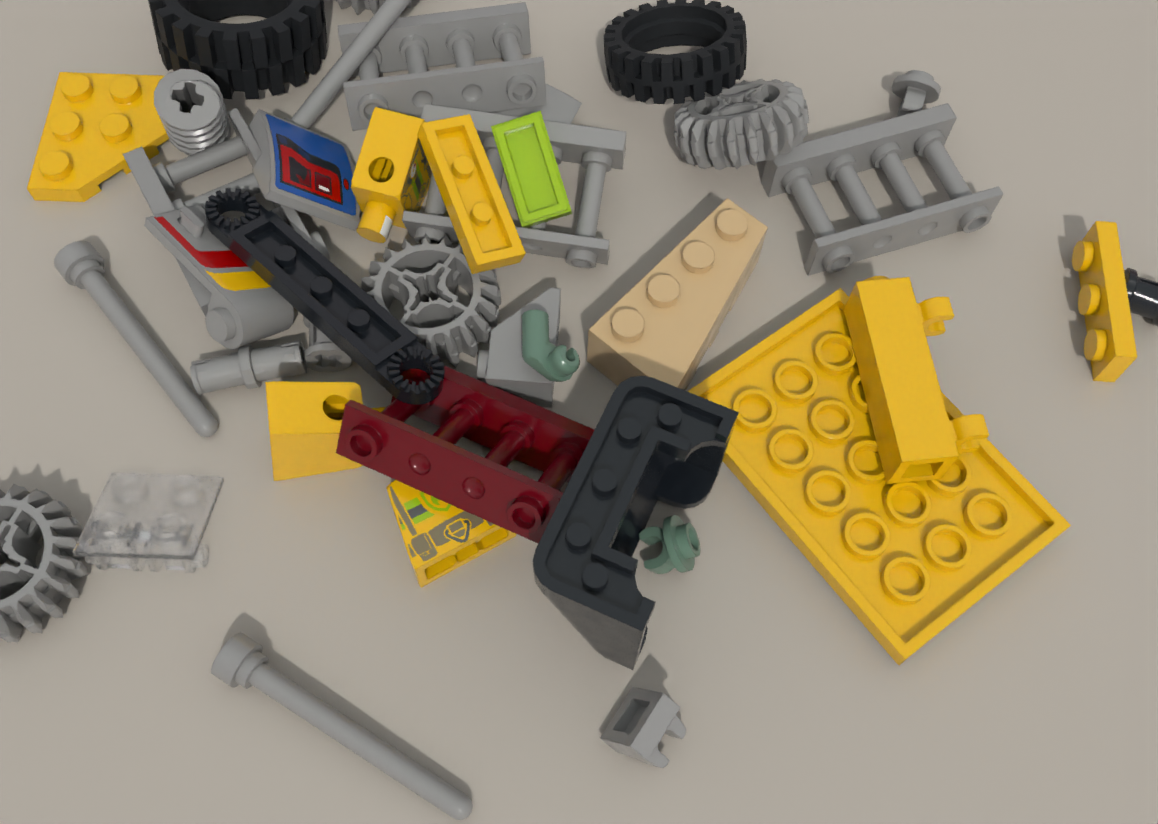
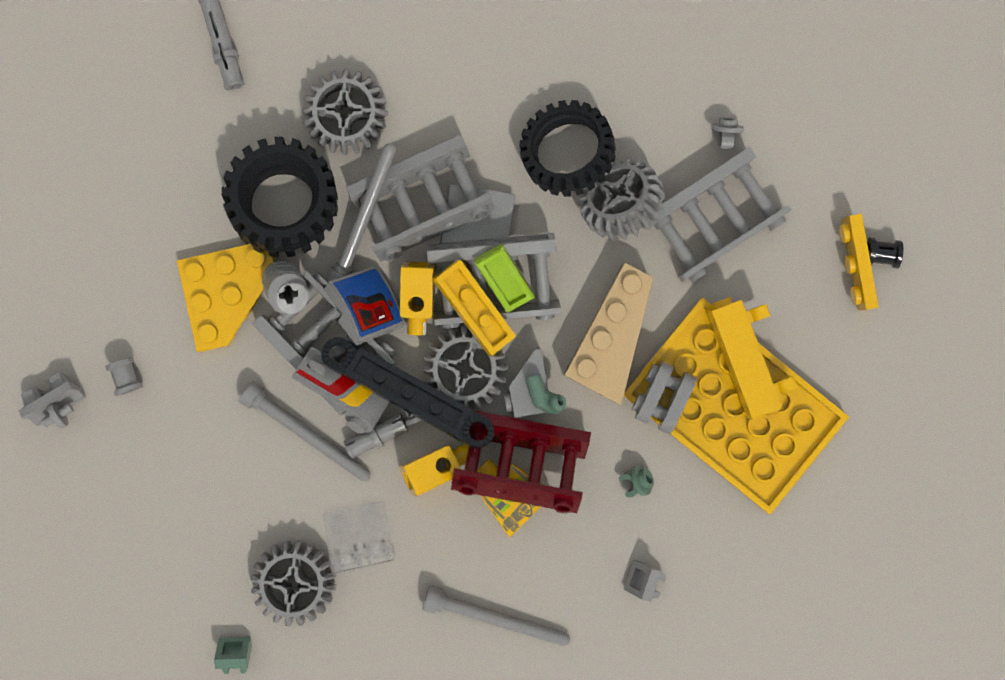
camera: 10 degrees left, 25 degrees up
(644, 450) = (597, 526): black windscreen -> none
(745, 374) = (647, 404): none -> light grey brick

